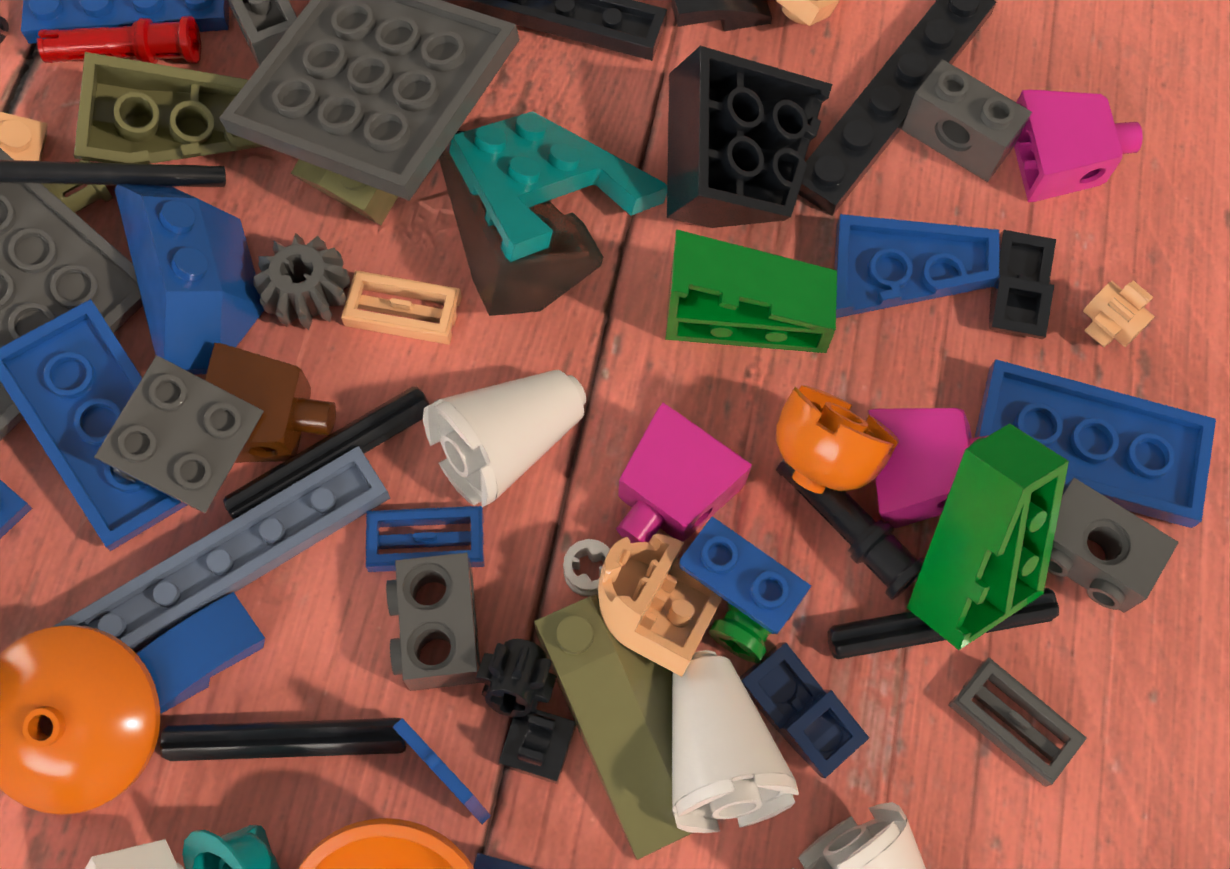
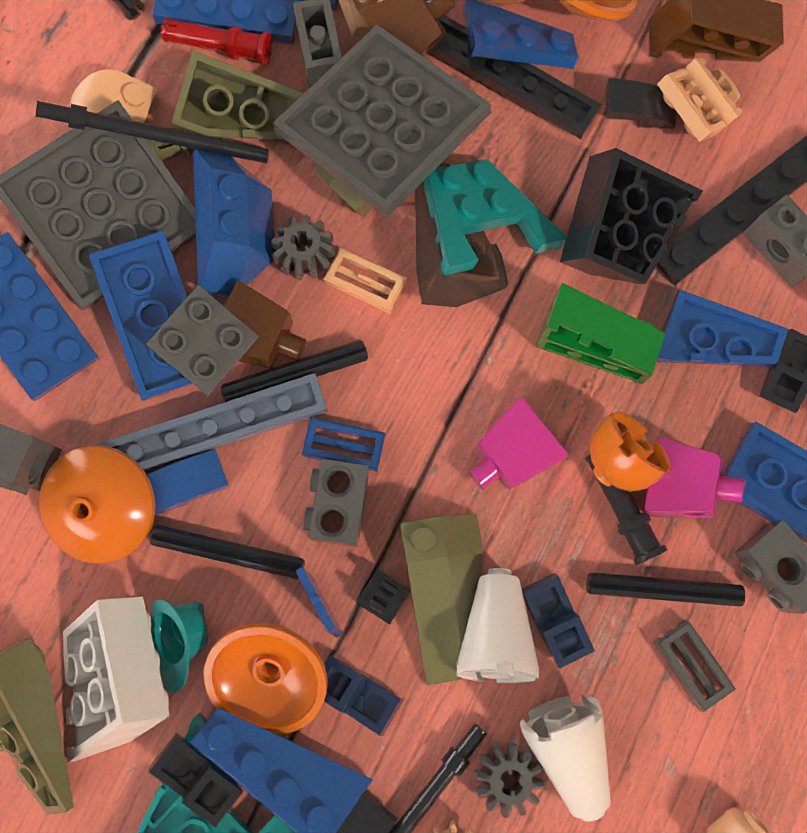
camera: 15 degrees right, 10 degrees up
(502, 430) = (411, 387): white cone -> none
(516, 677) = (380, 555): black gear -> none
(595, 551) = (451, 481): white bush -> none
(654, 602) = (483, 529): light nougat slope -> none
(740, 635) = (536, 558): green wheel -> none
(744, 576) = (543, 528): blue bracket -> none
(991, 537) = (713, 548): green wedge -> none

